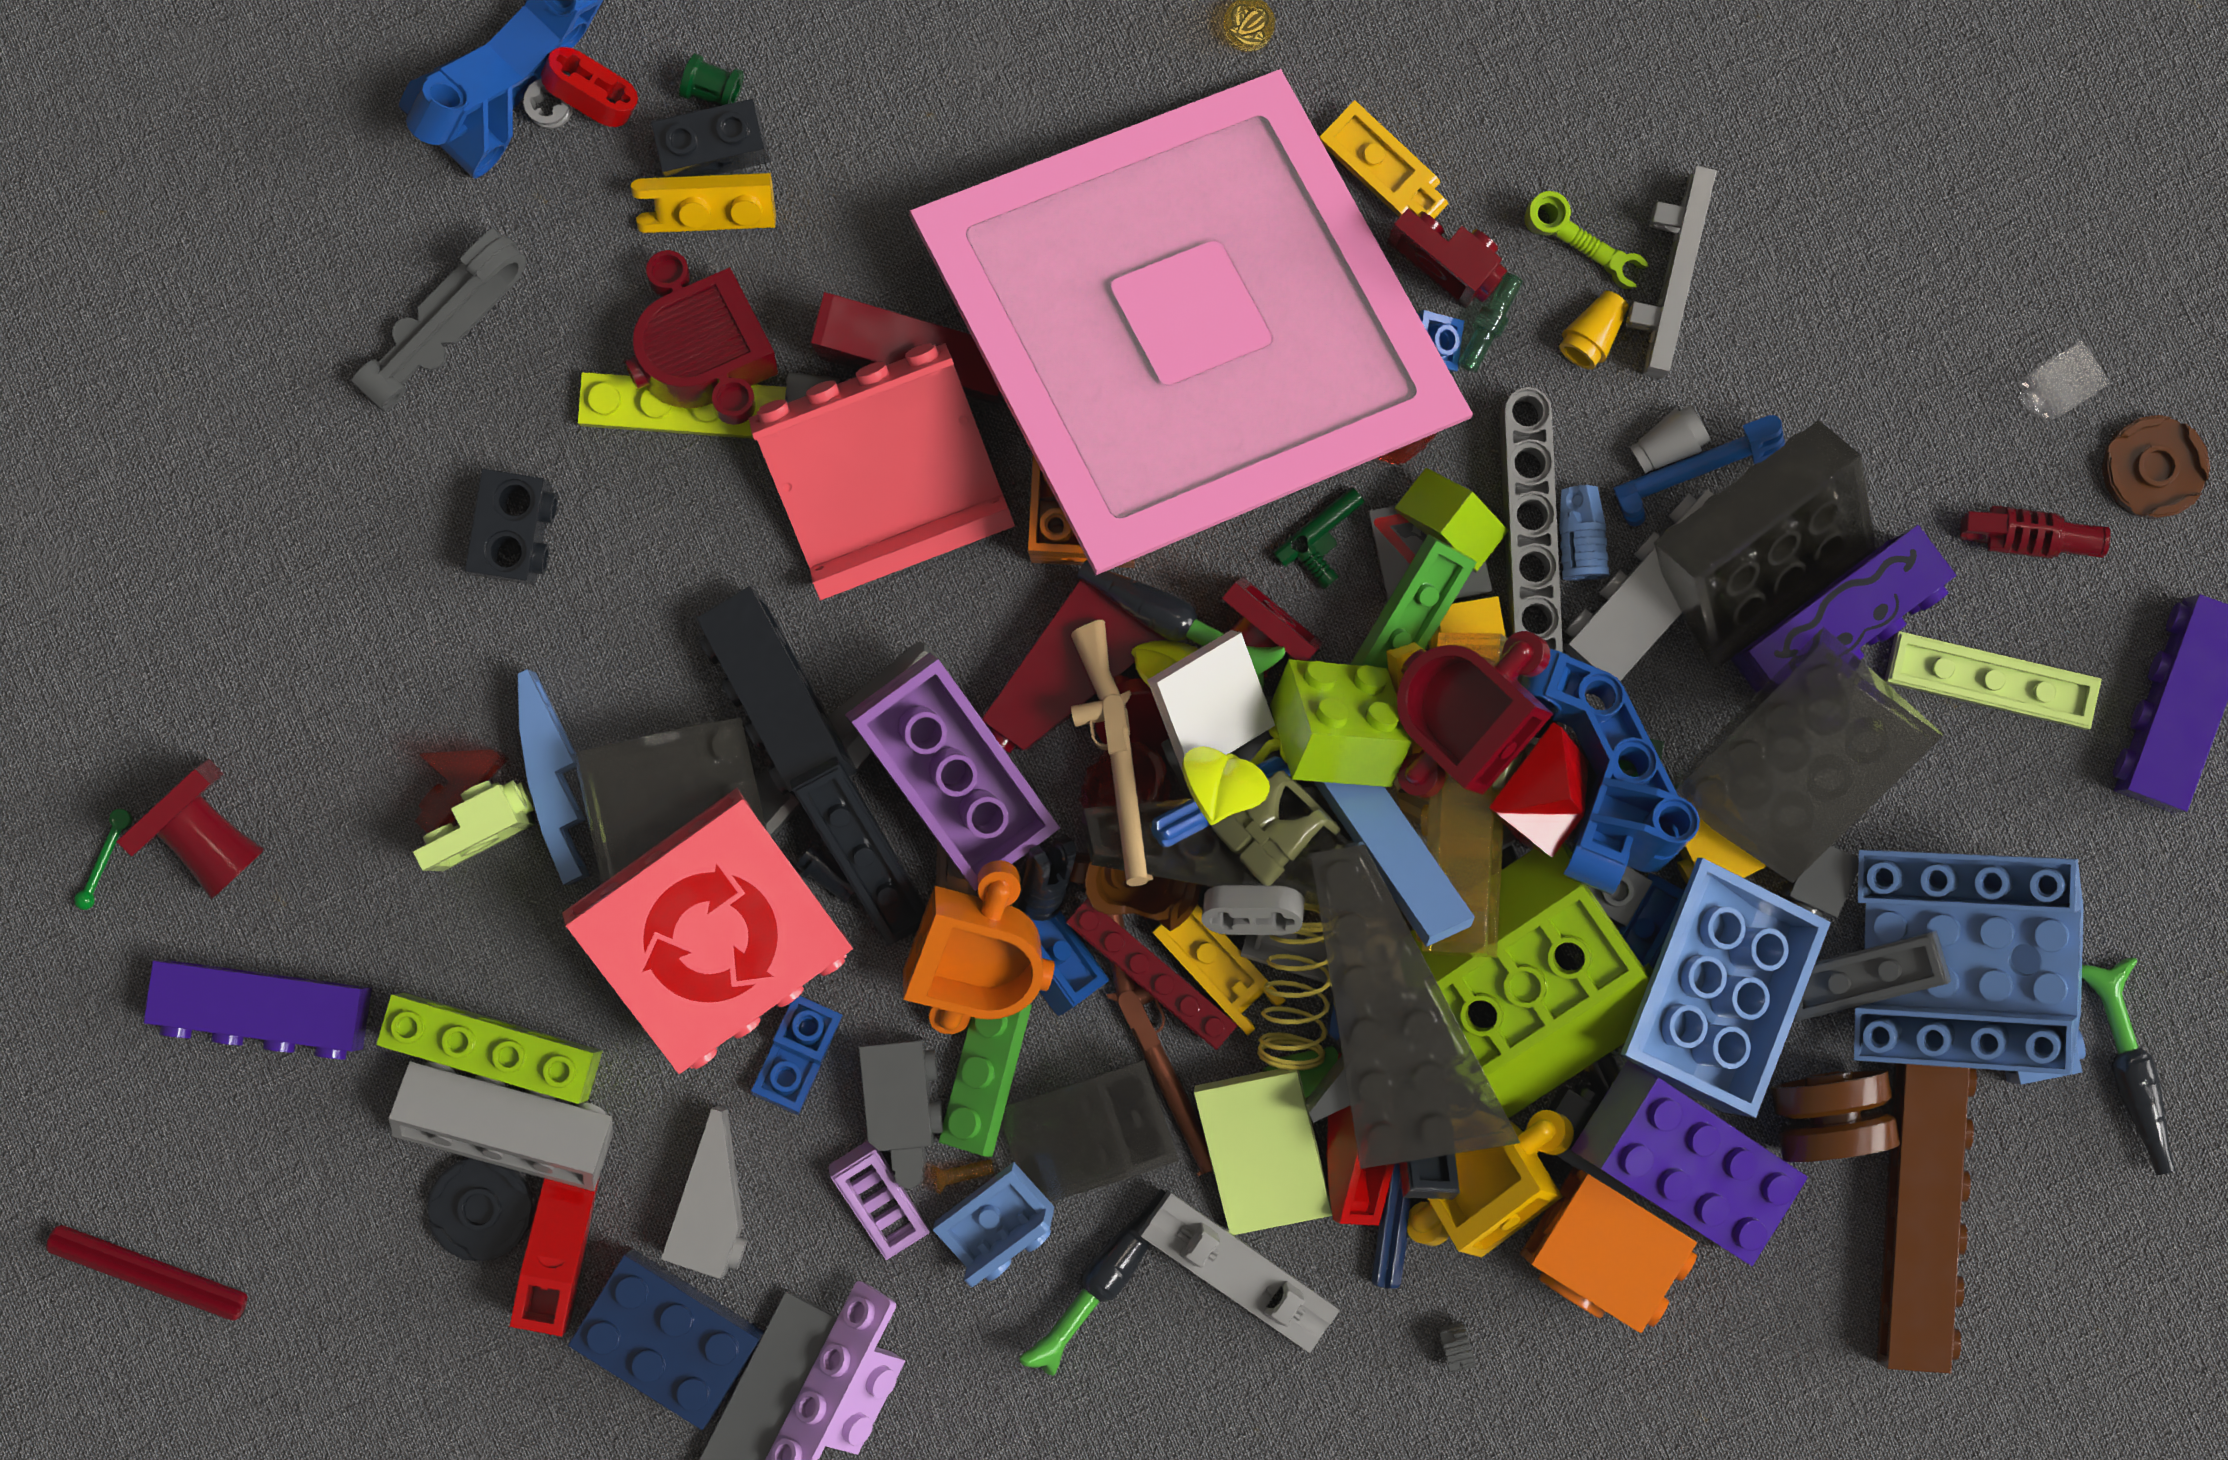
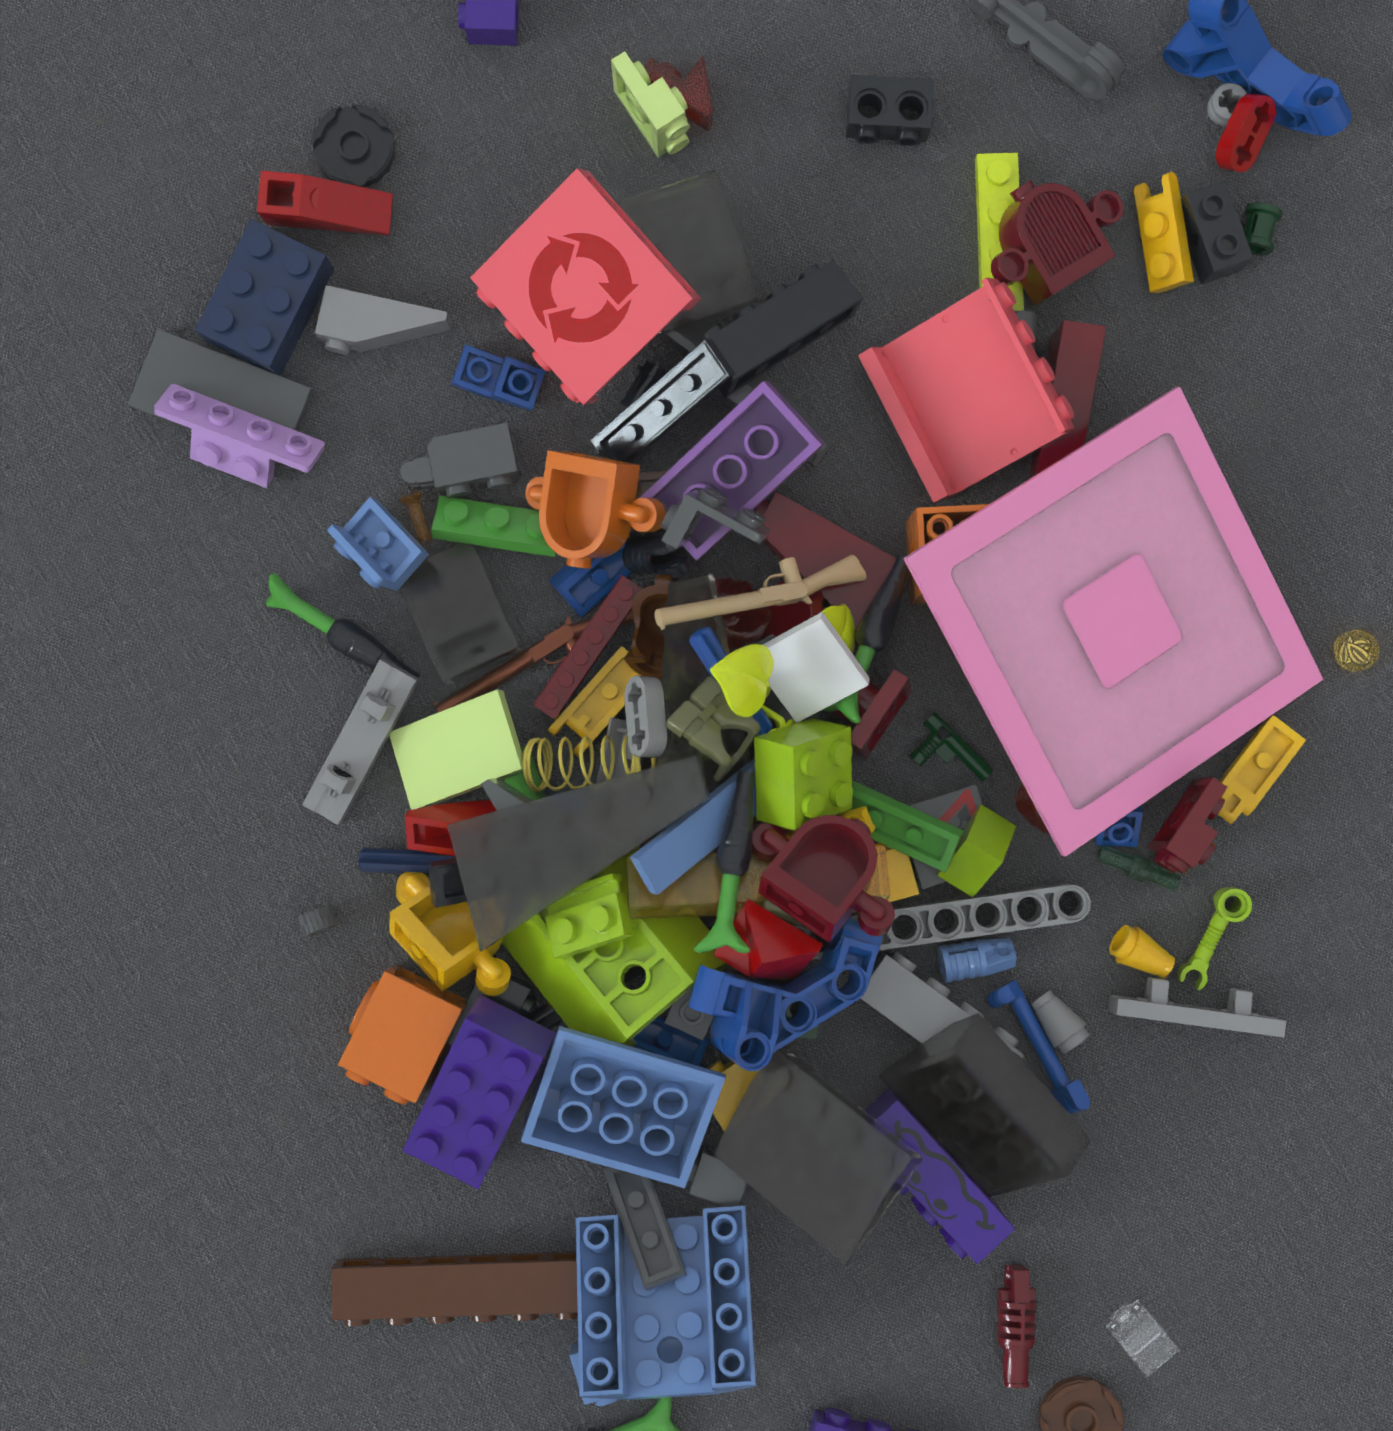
camera: 75 degrees right, 0 degrees up
(489, 1047) = (478, 137): lime brick -> none
(501, 1125) = (419, 152): light grey brick -> none
(546, 759) = (718, 152): medium blue slope -> none
(856, 1161) = (405, 421): lavender slope -> none
(1002, 801) = (685, 516): none -> dark grey bracket
(1444, 821) = (733, 862): none -> piece
(1491, 1004) = (589, 917): none -> lime plate
(1834, 1109) = (527, 1207): reddish brown wheel -> none
(1992, 680) = (893, 1302): yellowish green tile -> none

